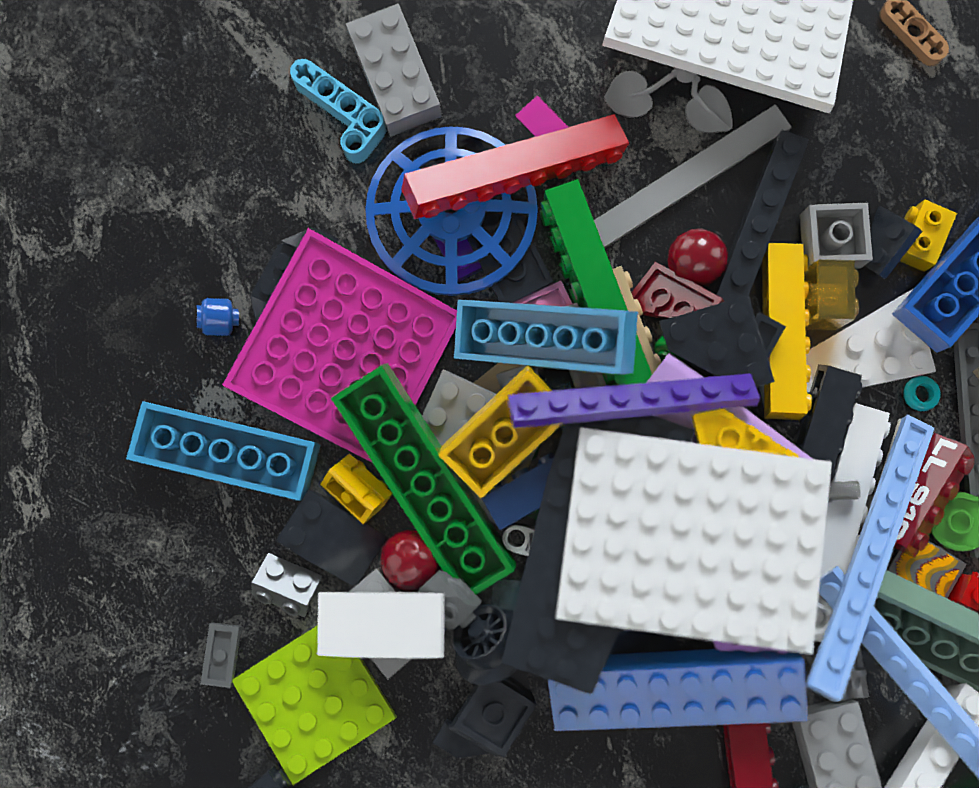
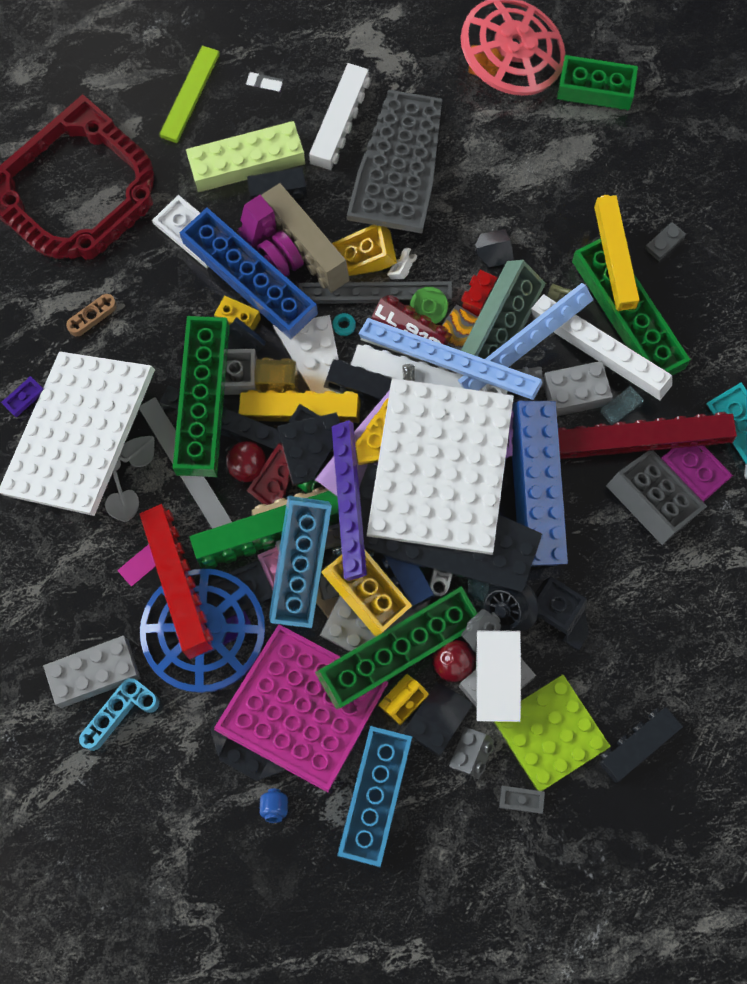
camera: 90 degrees left, 10 degrees down
(793, 183) = (201, 397): none -> green brick

